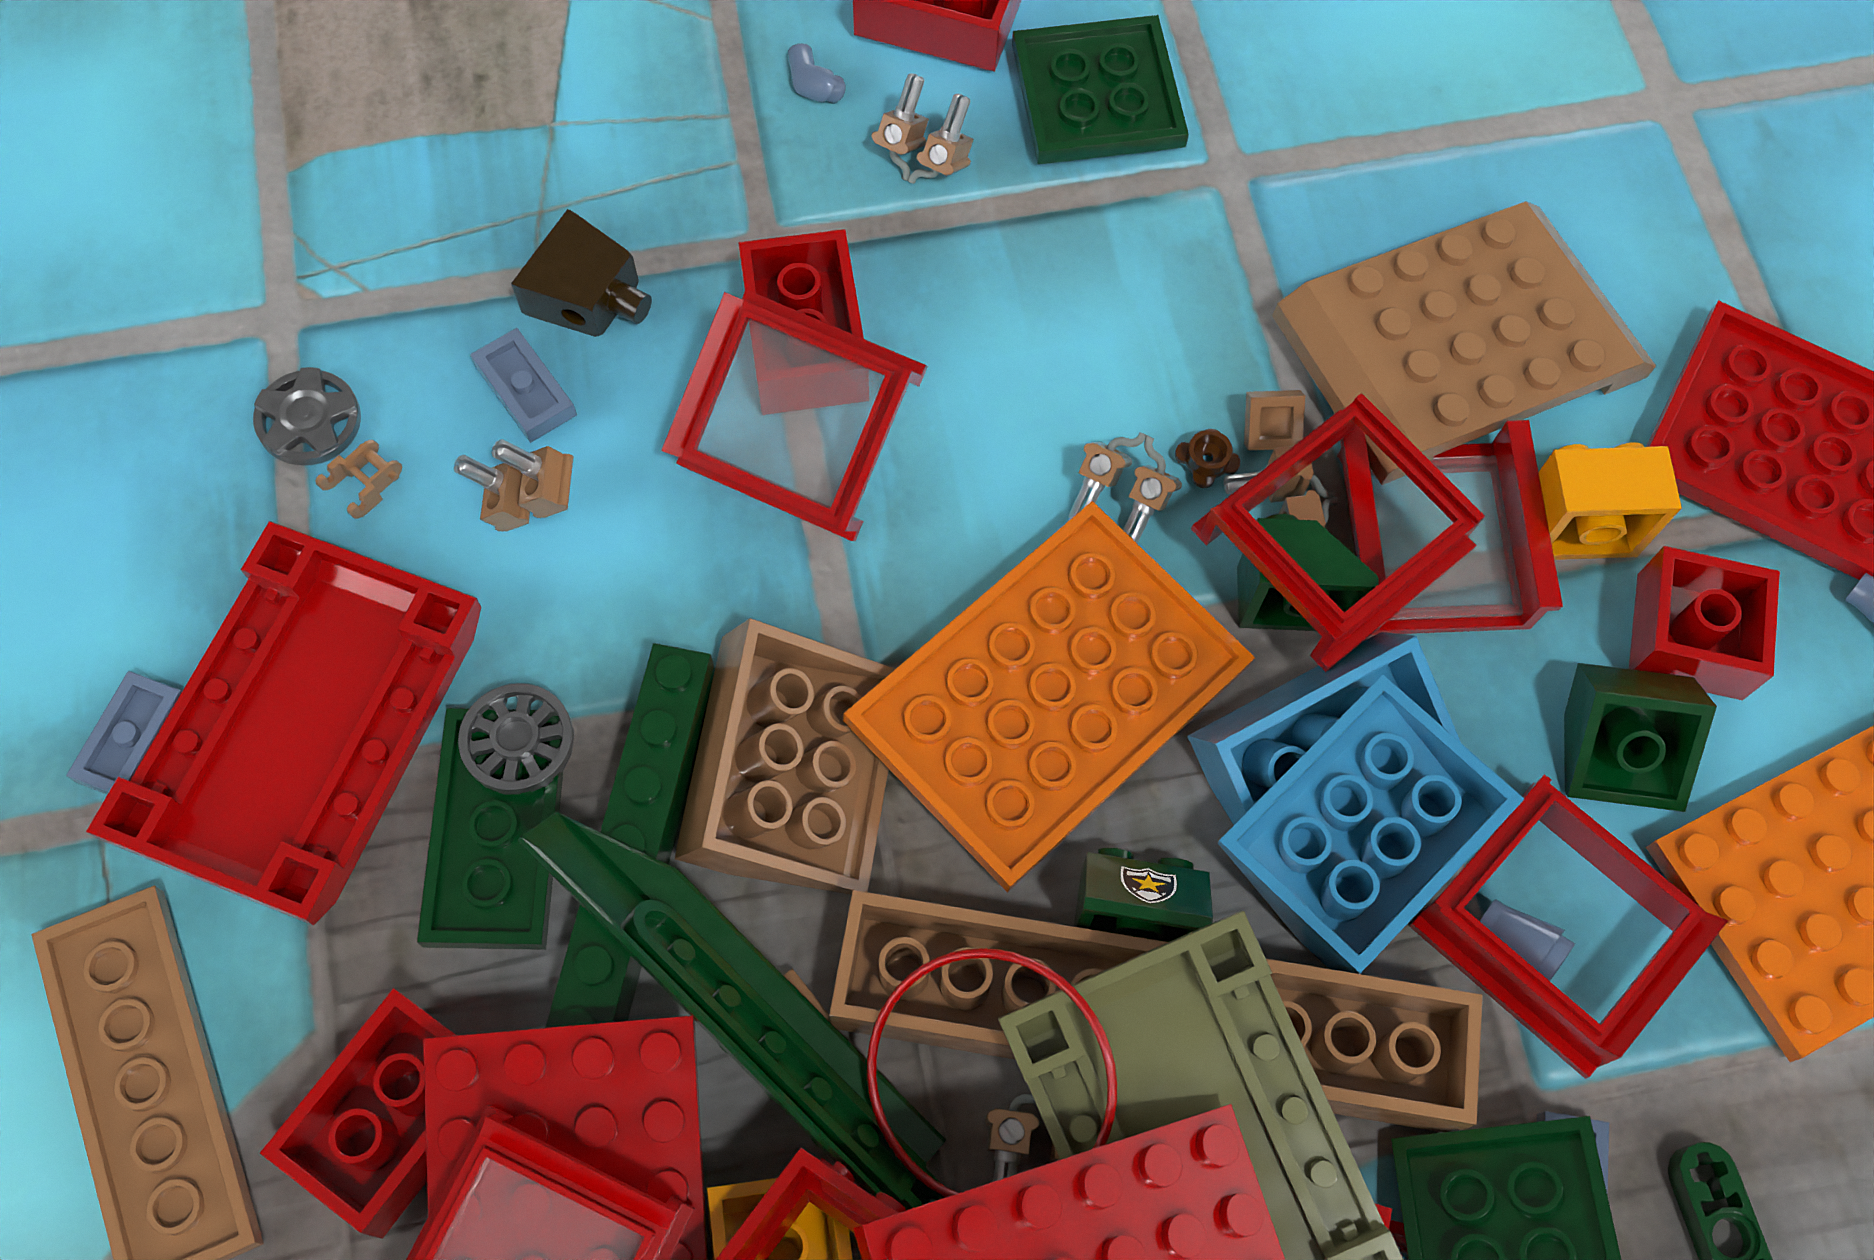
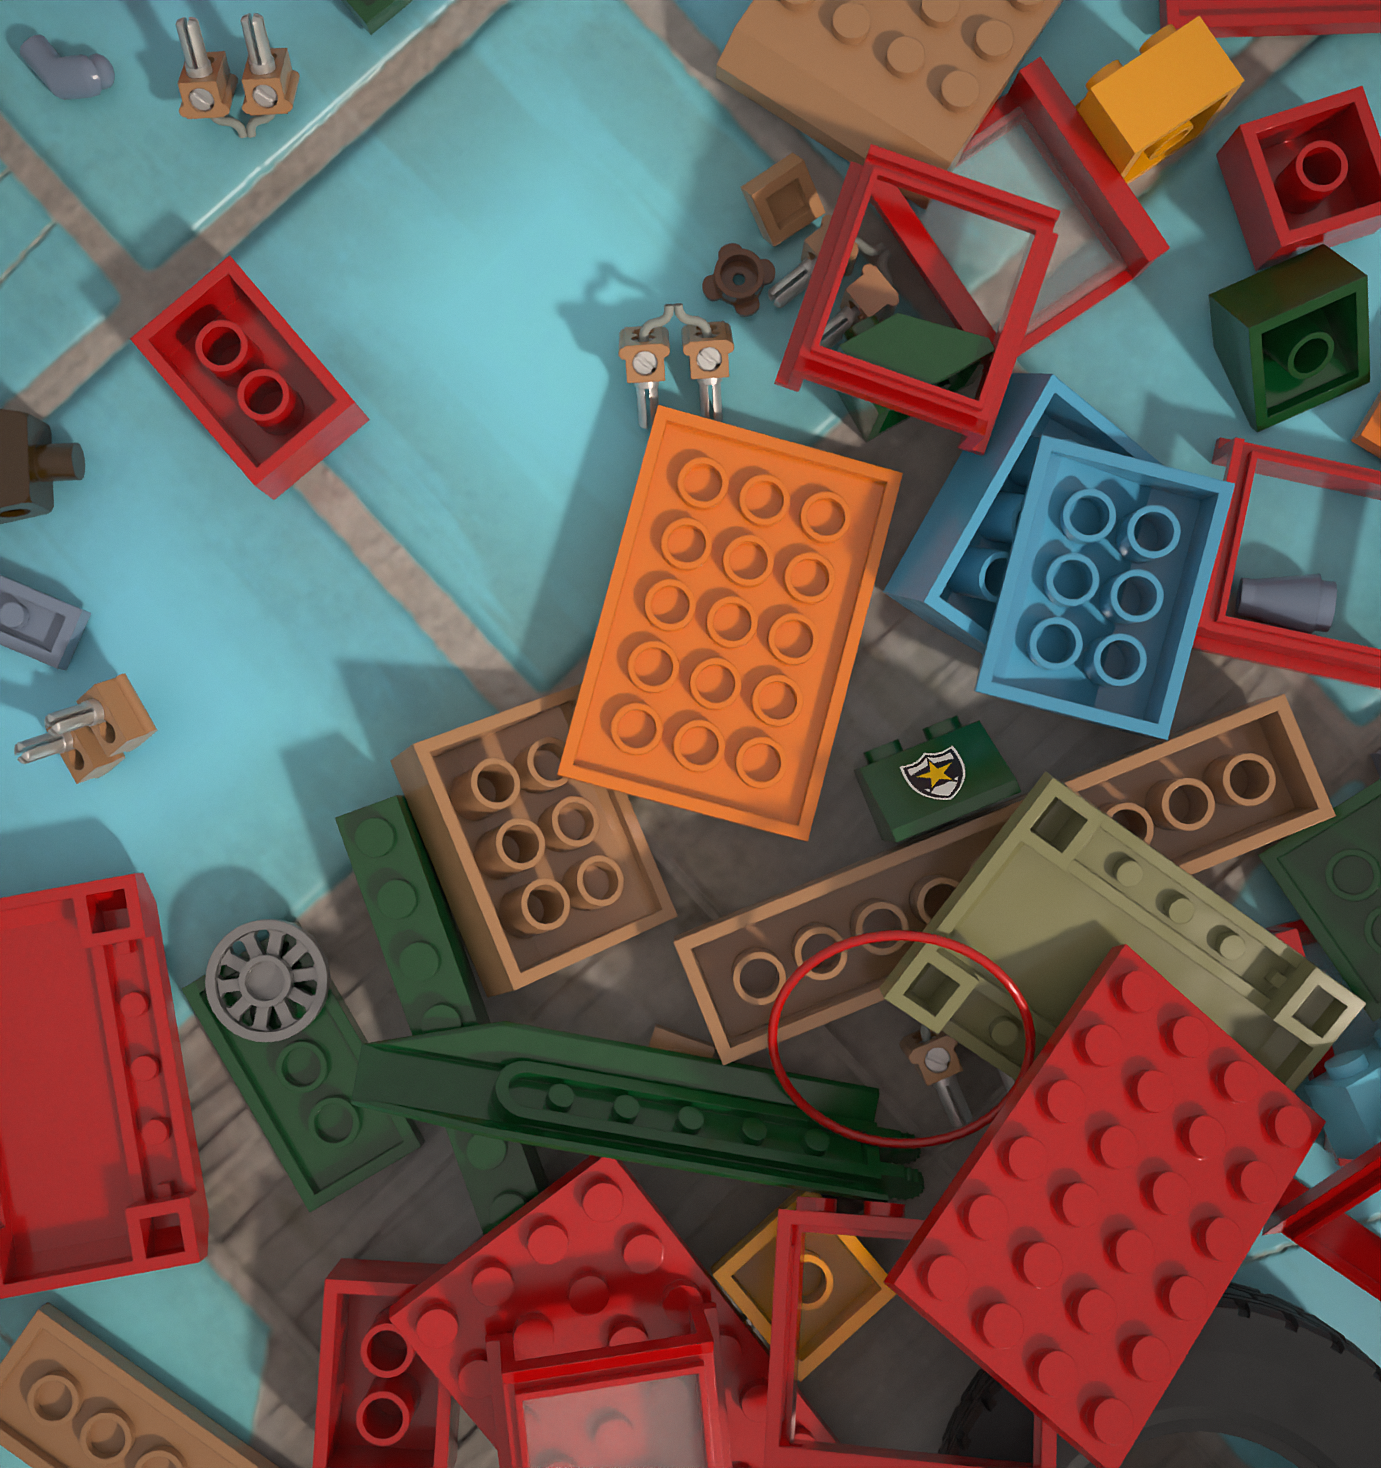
camera: 25 degrees left, 20 degrees up
(789, 410) = (304, 489): piece -> none

